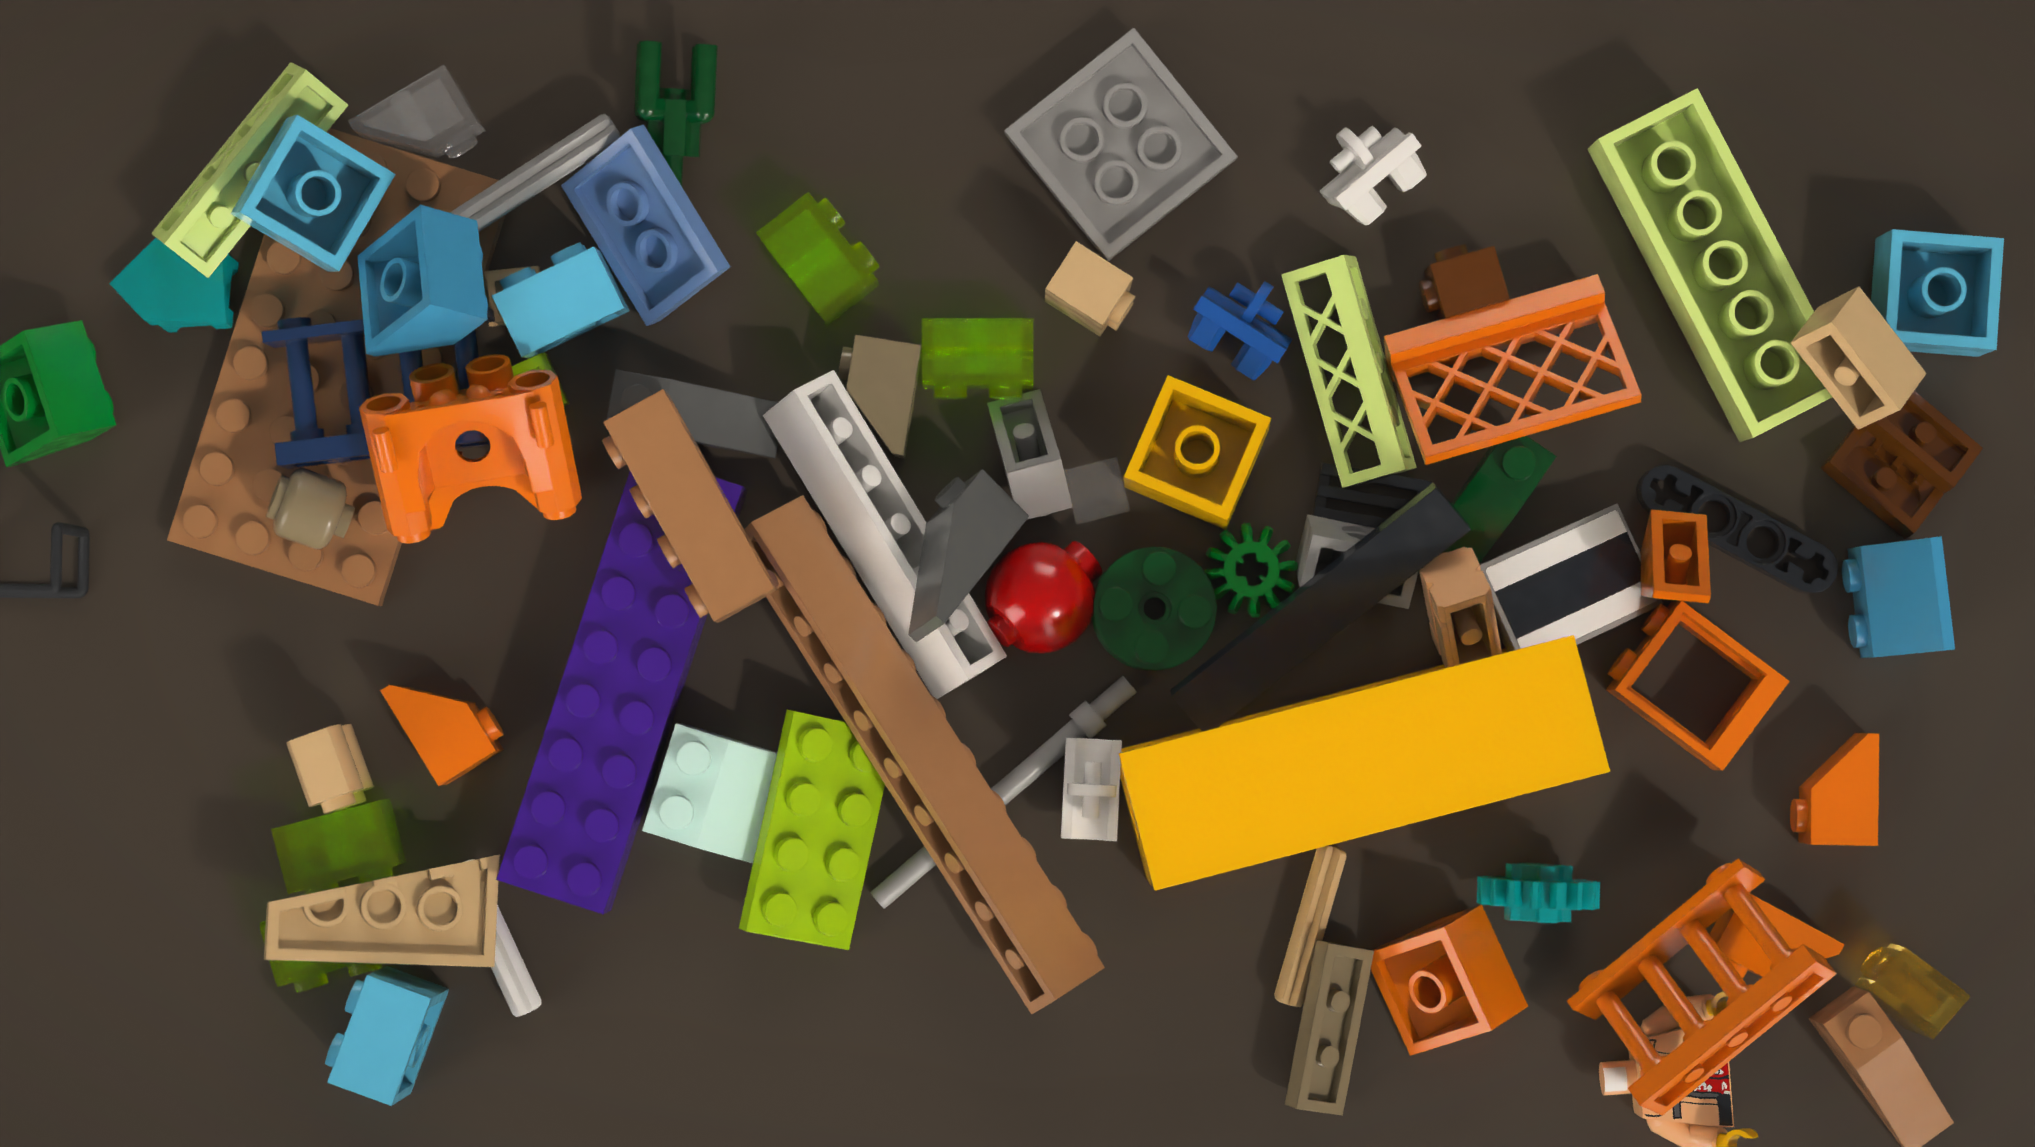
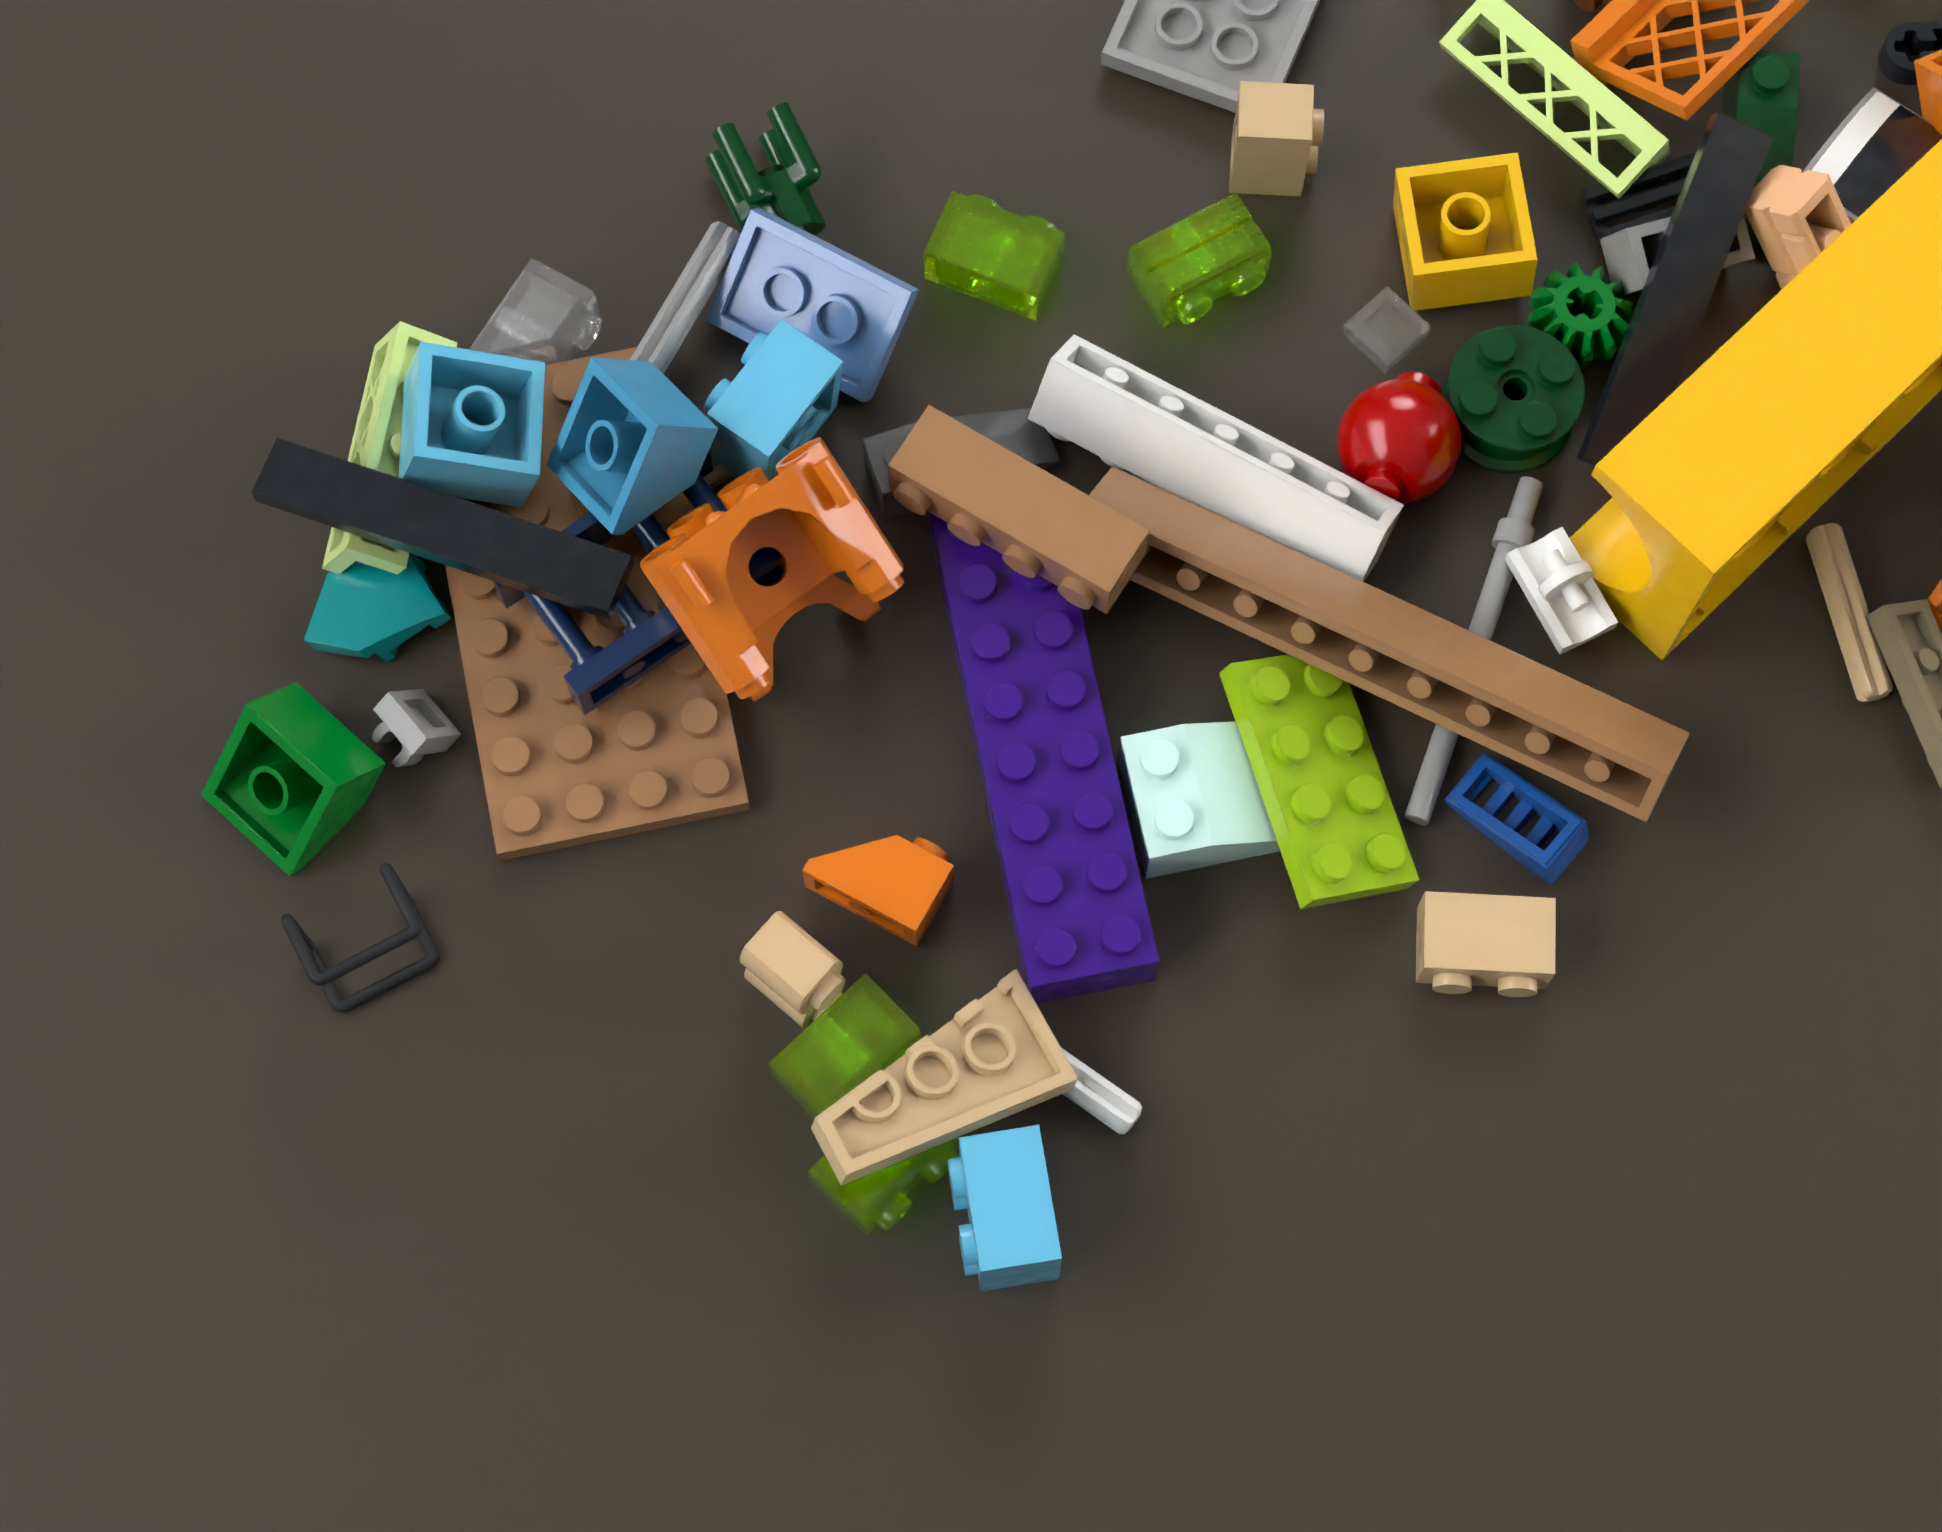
camera: 30 degrees left, 15 degrees down
(158, 402) = (415, 723): none -> light grey tile
(242, 272) = (443, 528): none -> black tile
(310, 508) = (631, 729): dark tan head -> none
(866, 1028) = (1485, 942): none -> tan brick
(883, 386) = (1128, 323): dark tan slope -> none
(959, 546) = (1298, 420): dark grey slope -> none
(966, 989) = (1527, 851): none -> blue slope
(1030, 454) = (1308, 324): light grey slope -> none
(1221, 314) = (1457, 112): blue hips -> none

